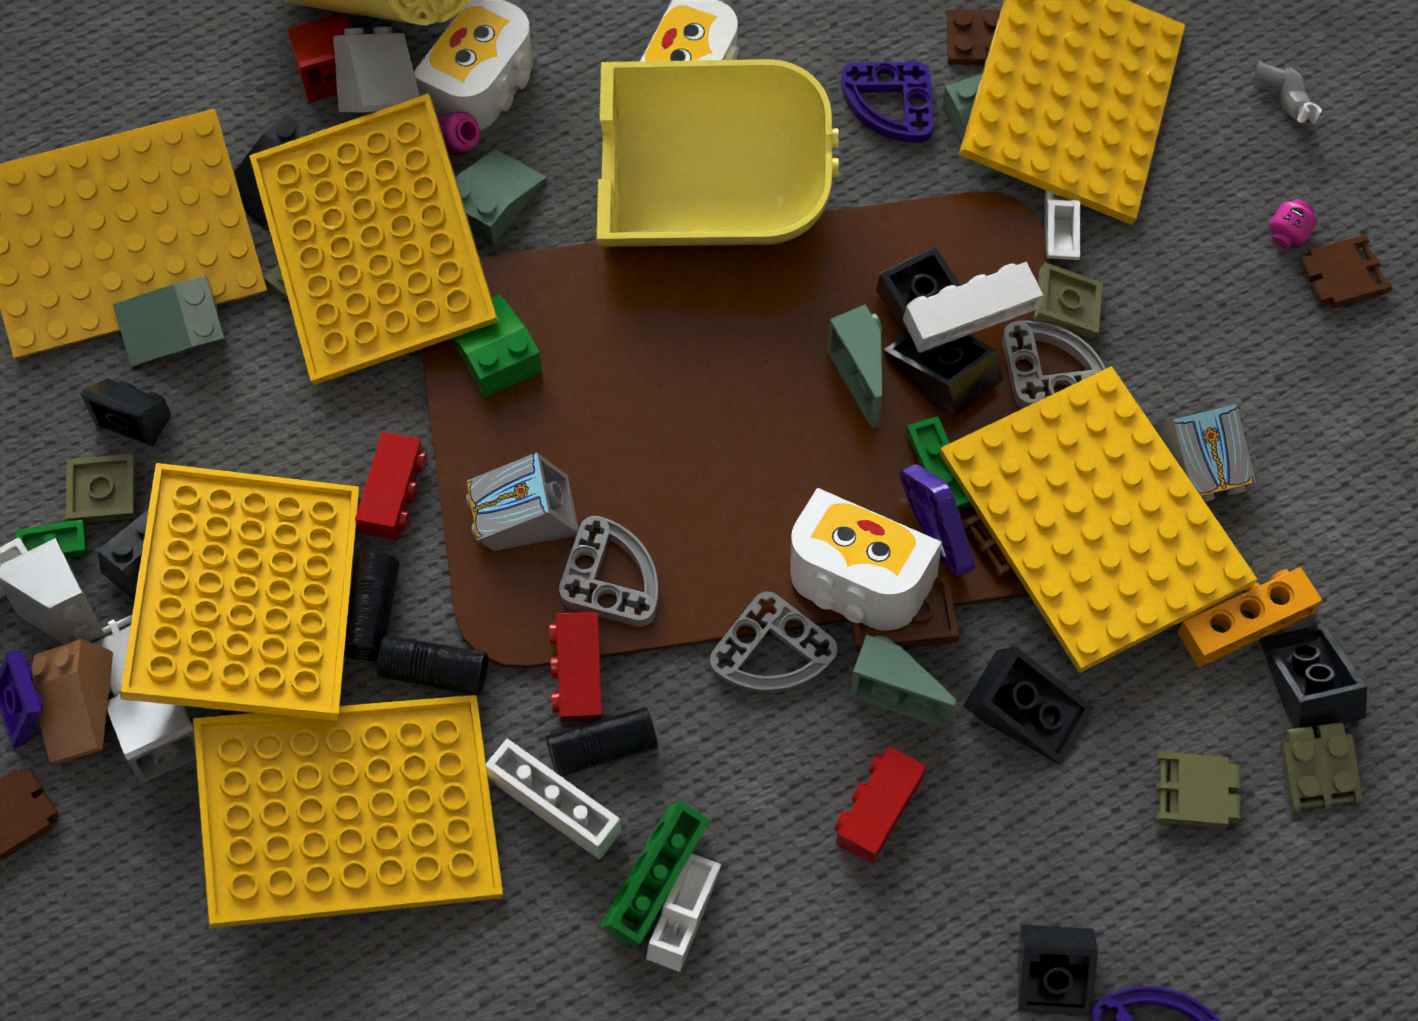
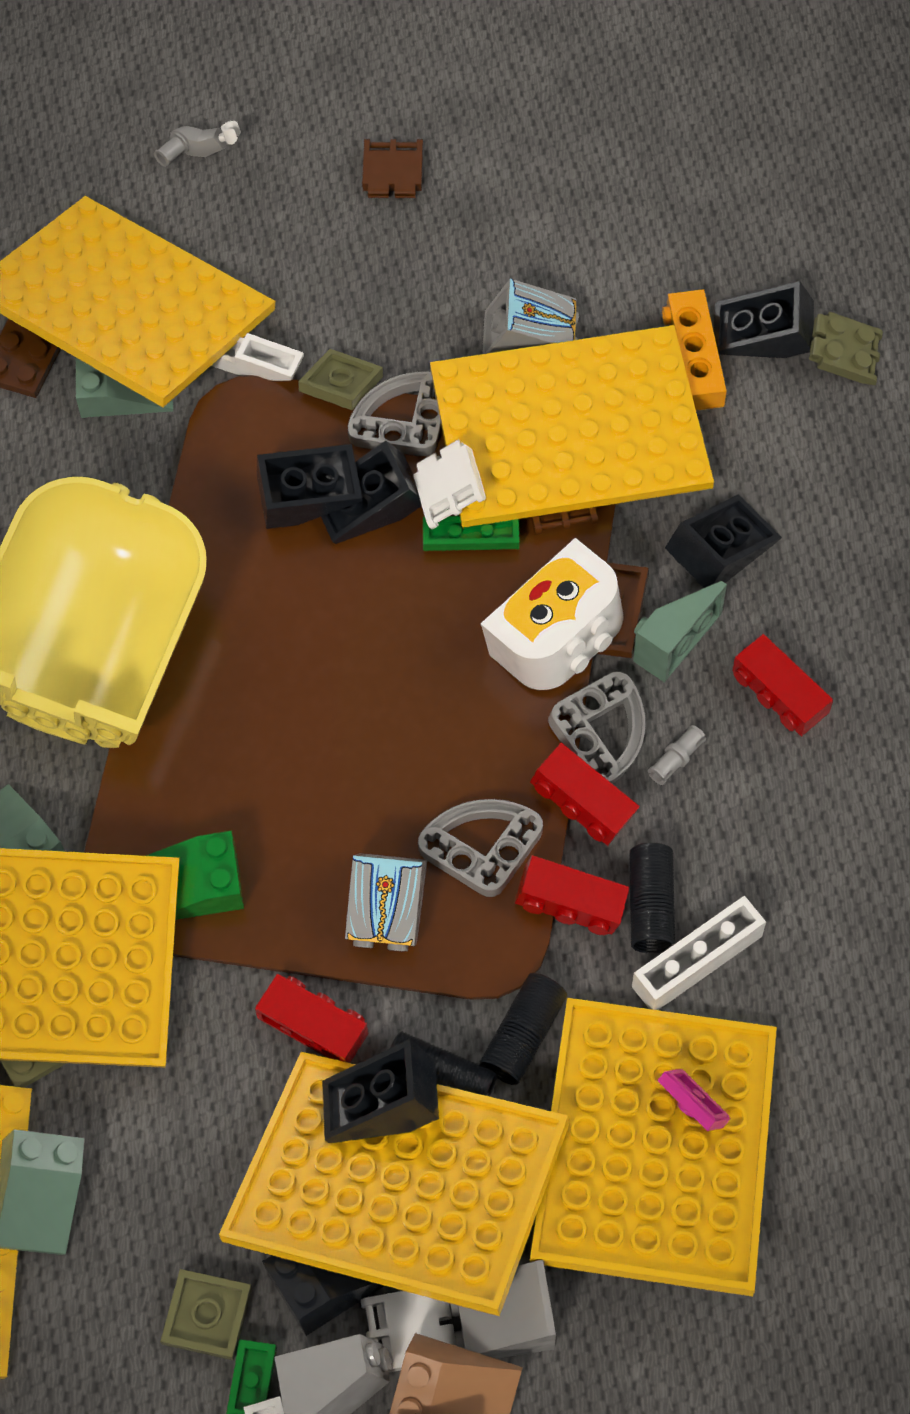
camera: 70 degrees left, 0 degrees up
(127, 410) = (127, 1261): black slope -> none
(318, 554) = (381, 1095): none -> black slope
(390, 825) = (693, 1099): none -> dark pink plate
(654, 874) = (798, 887): green brick -> none
(683, 913) = (836, 877): white slope -> none
(687, 647) = (583, 794): none -> red brick
(768, 726) = (677, 755): none -> light grey pin
(856, 353) = (351, 556): sand green slope -> none
(910, 89) = (52, 436): dark purple beam -> none
(938, 517) = (502, 547): dark purple beam -> none
(972, 306) = (336, 444): white brick -> none
(972, 419) = (448, 482): none -> white plate
(1198, 790) = (838, 442): olive plate -> none
(1293, 223) = (330, 186): dark pink head -> none

